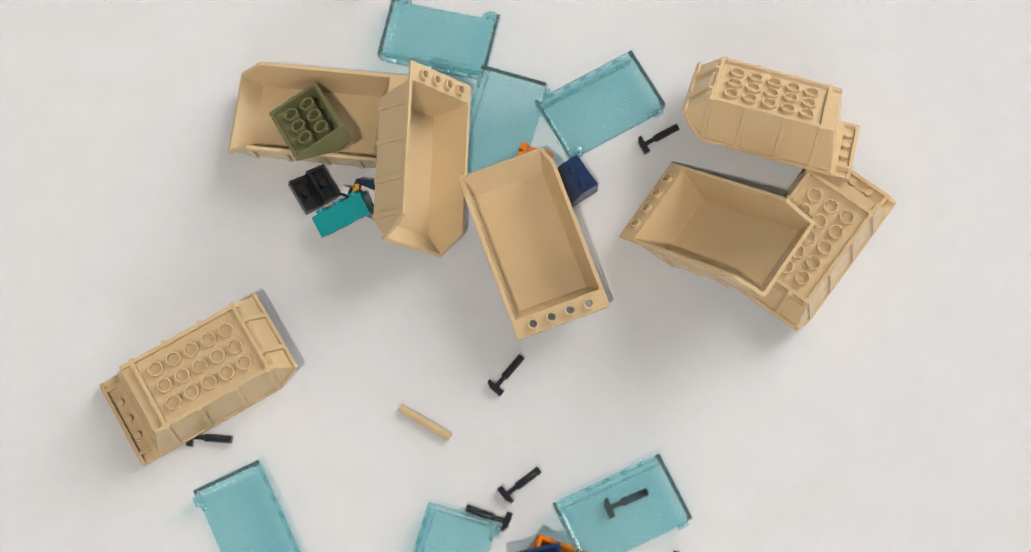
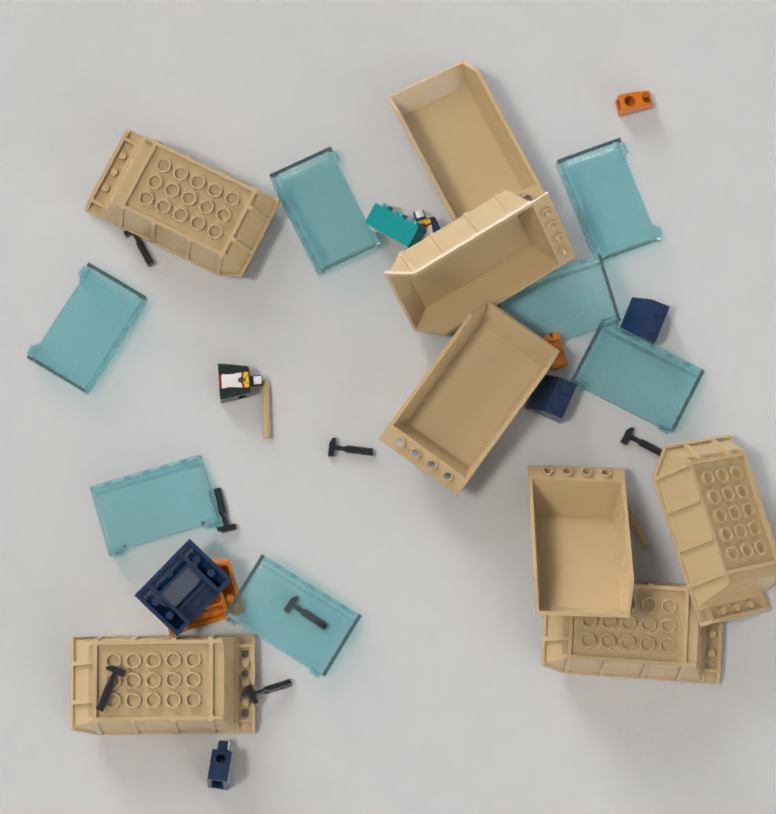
camera: 45 degrees right, 5 degrees up
(288, 266) = (324, 211): none -> clear light blue windscreen
(310, 124) = (452, 148): olive slope -> none
(314, 189) = (404, 188): black slope -> none
(384, 432) = (236, 382): none -> torso
(518, 485) = (264, 519): black piece -> none
(556, 68) = (645, 318): none -> dark blue slope

